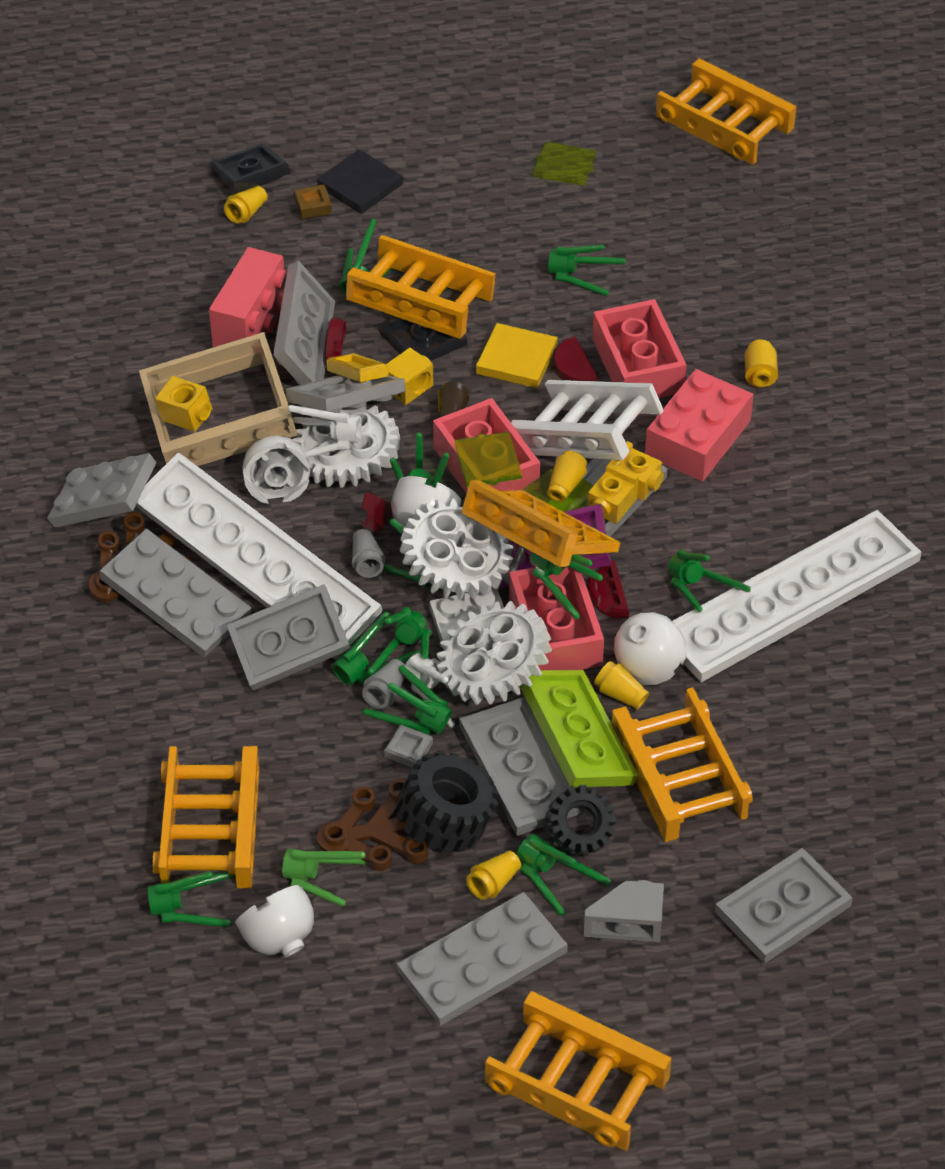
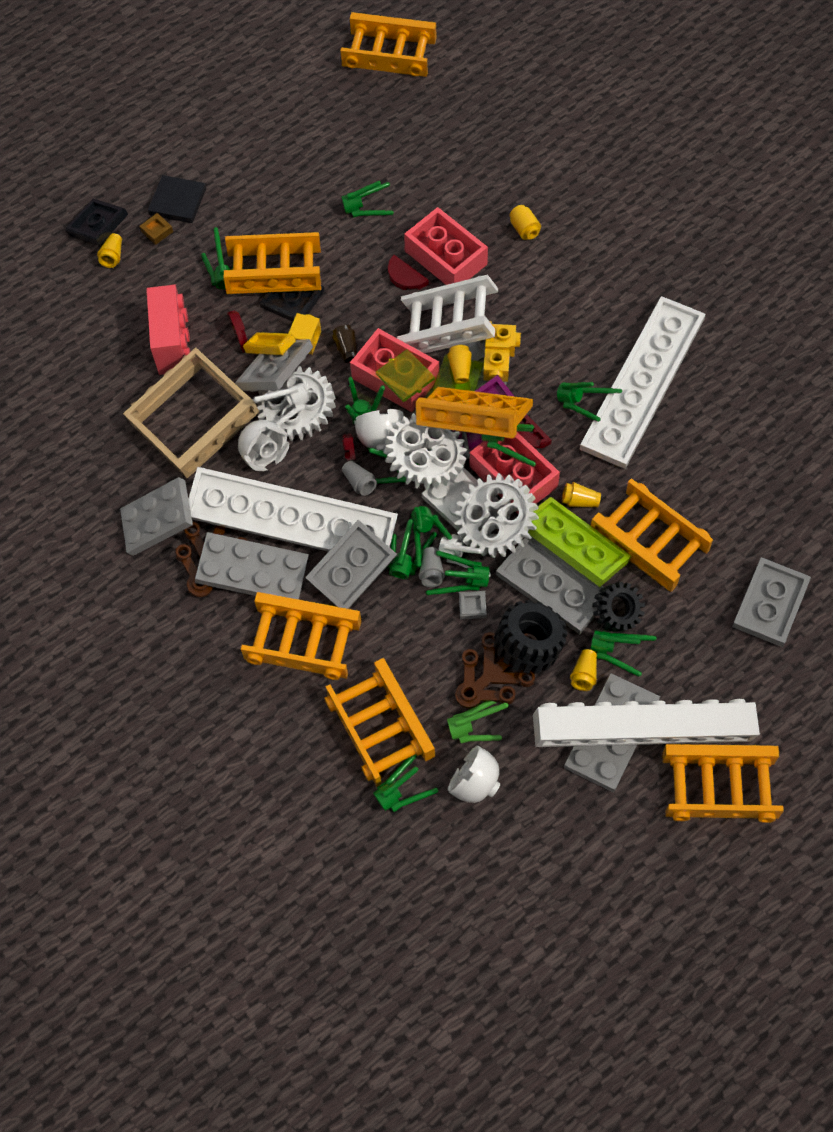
camera: 25 degrees left, 15 degrees up
(183, 403) = (168, 420): yellow brick -> none
(191, 658) = (295, 611): none -> light orange fence
(303, 326) = (215, 329): light grey plate -> none
(516, 355) = (363, 285): yellow tile -> none
(520, 955) = (645, 723): none -> white brick
(565, 163) = (305, 127): clear neon green piece -> none
(627, 913) = (686, 654): light grey slope -> none
(650, 647) = (584, 461): white cylinder -> none
(699, 424) = (517, 279): coral brick -> none

